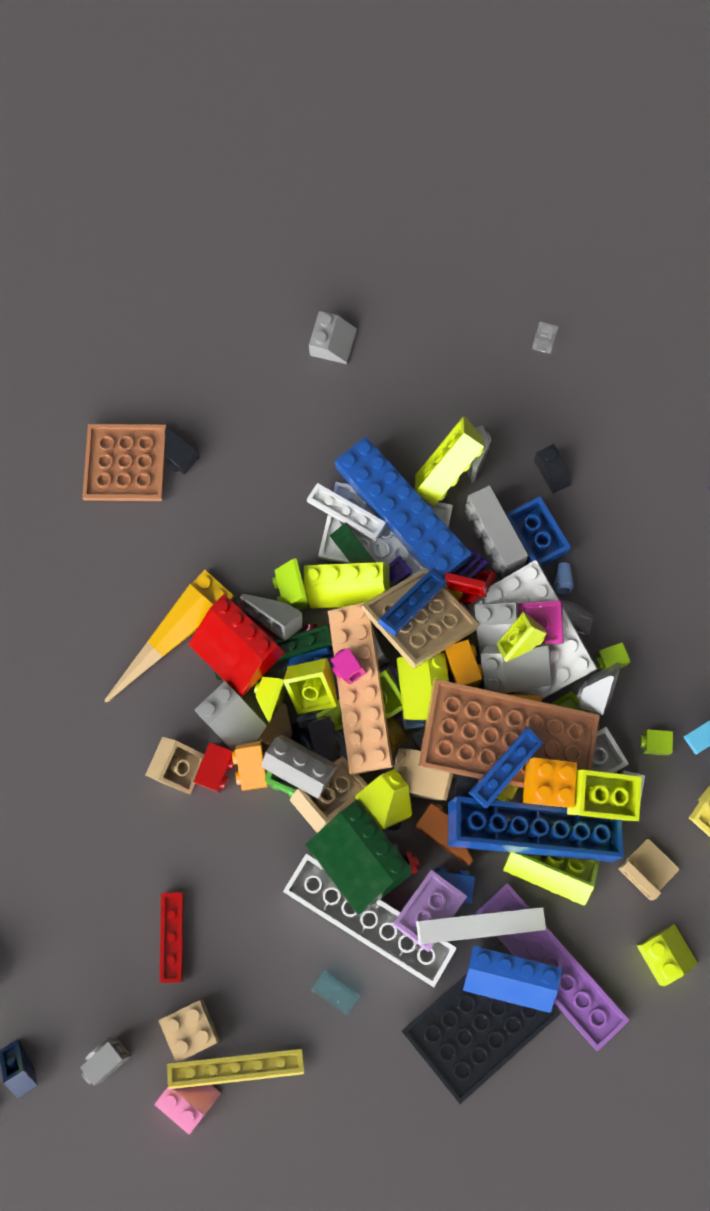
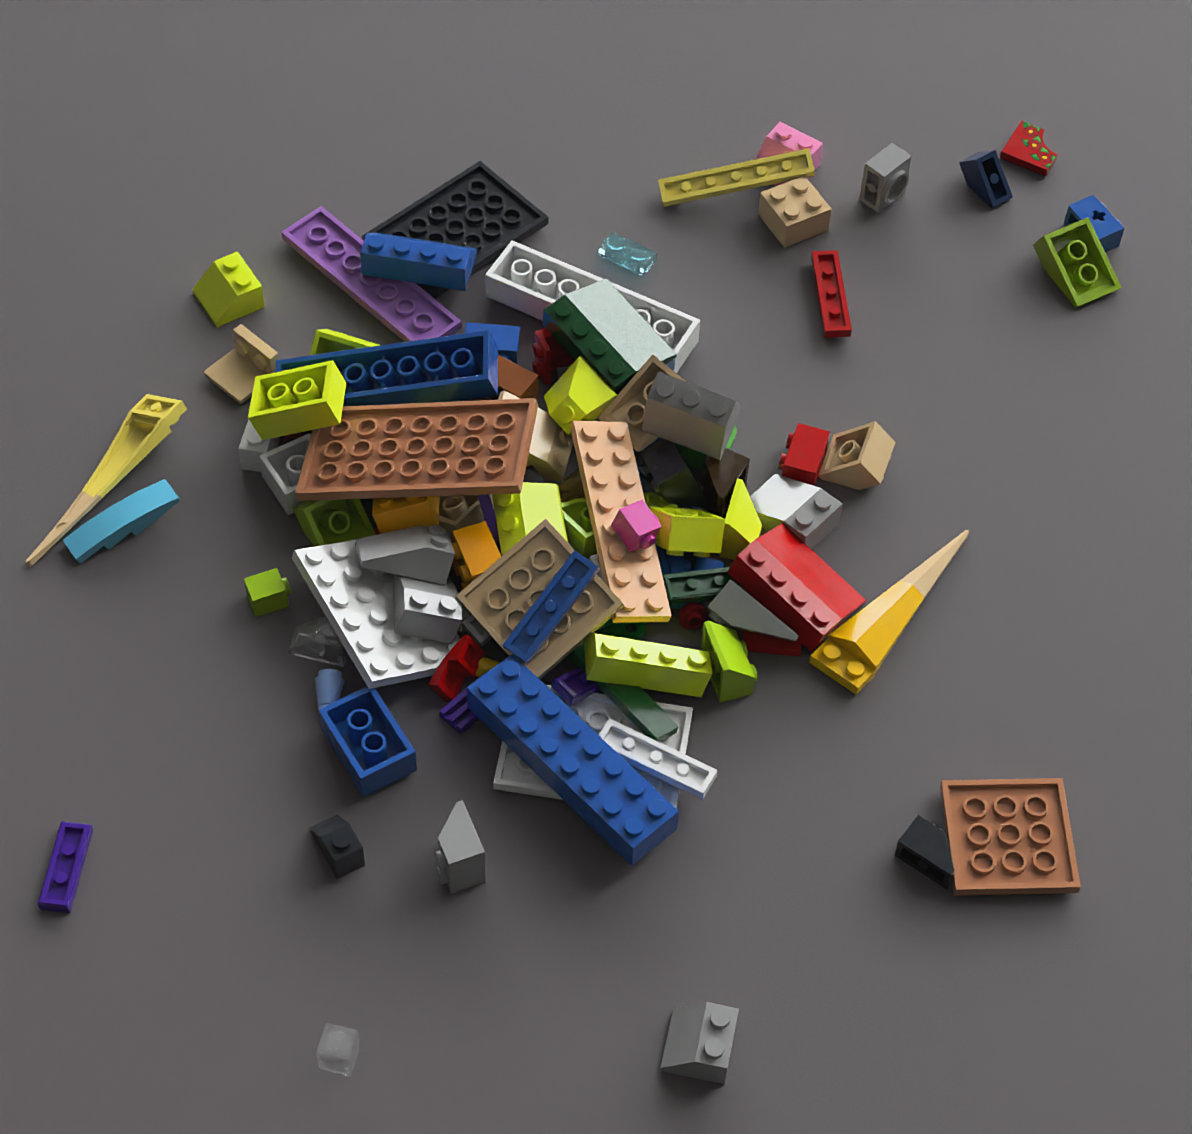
camera: 170 degrees right, 20 degrees down
(249, 760) = (762, 450): light orange brick -> none
(431, 901) = (518, 302): lavender plate -> none
(449, 461) = (502, 815): neon yellow slope -> none
(466, 585) = (474, 647): red tile -> none
(480, 925) = (455, 289): white tile -> none
(495, 531) = (437, 743): light grey brick -> none
(506, 767) = (423, 409): blue plate -> none
(521, 637) = (399, 559): neon yellow slope -> none
(549, 616) = (368, 598): dark pink plate -> none
(550, 782) = (367, 401): light orange brick -> none
(598, 690) = (290, 530): light grey slope -> none
(657, 742) = (216, 498): lime brick -> none

